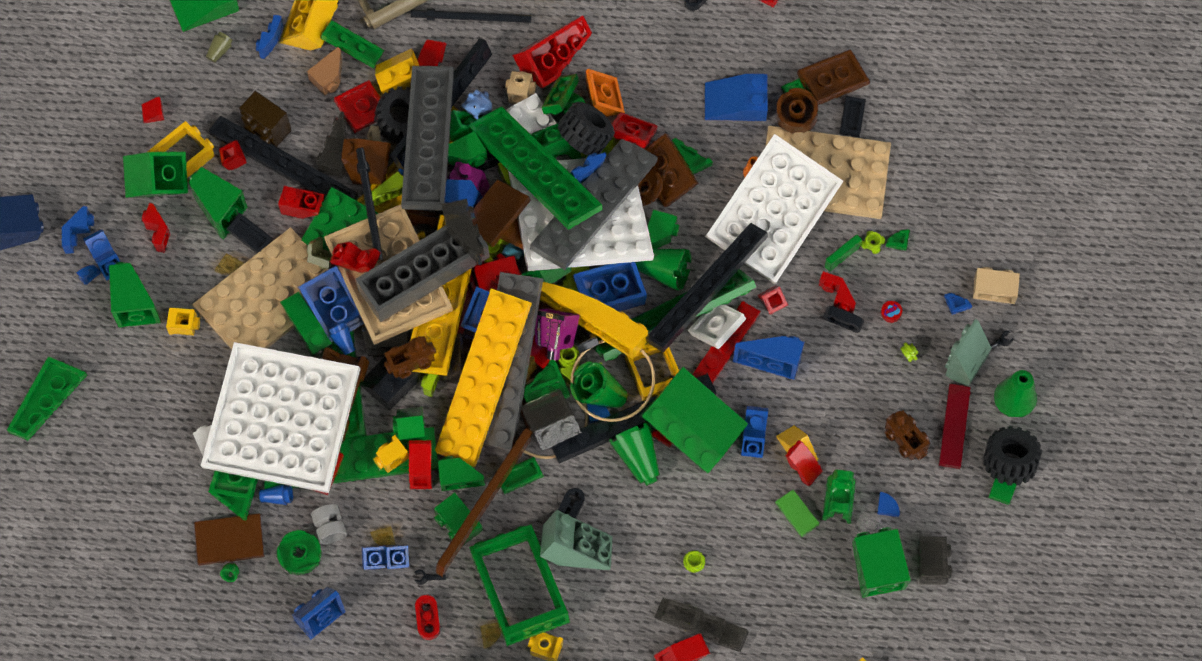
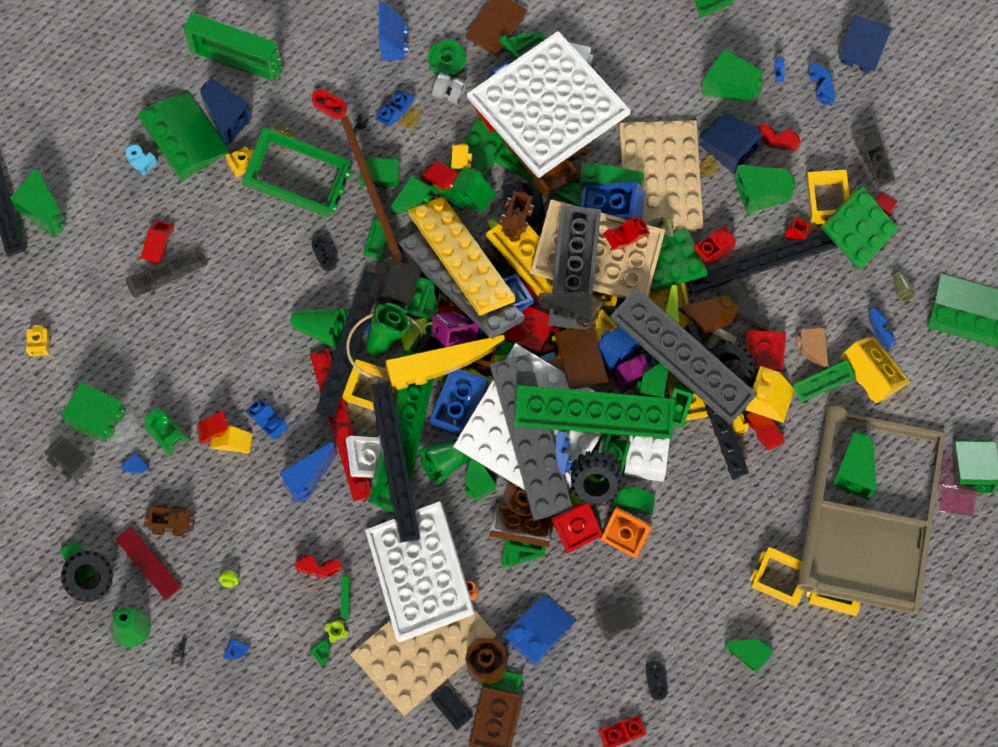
camera: 130 degrees right, 5 degrees up
(101, 252) = (782, 90): blue slope -> none
(111, 148) = (874, 155): none -> clear smoke slope
(155, 174) = (818, 158): green slope -> none
(177, 316) = (687, 97): yellow brick -> none
(192, 257) = (730, 141): none -> dark blue slope
(193, 107) = (859, 227): none -> green plate
(227, 568) = (472, 8): green hinge -> none
(249, 233) = (721, 196): black tile -> none
(265, 119) = (805, 267): dark brown brick -> none
(341, 336) = (579, 190): blue cone -> none
(364, 169) = (697, 294): black bar -> none
(431, 14) = (805, 463): black bar -> none
(478, 104) = (689, 425): medium blue animal -> none
(519, 86) = (682, 473): tan brick -> none
(552, 53) = (696, 521): red wedge -> none
(560, 94) = (649, 494): green plate -> none
(575, 543) = (290, 231): sand green slope -> none
(676, 51) = (618, 617): none -> clear smoke brick
(694, 420) = (306, 374): green slope -> none
(694, 561) = (213, 303): lime plate -> none
(773, 299) = (356, 519): red slope -> none
(797, 513) = (185, 400): bright green tile -> none
(843, 318) = (292, 554): black beam -> none
(891, 311) = (271, 596): red tile -> none
(968, 354) = (183, 610): sand green slope -> none
(996, 285) = (222, 687): tan brick -> none

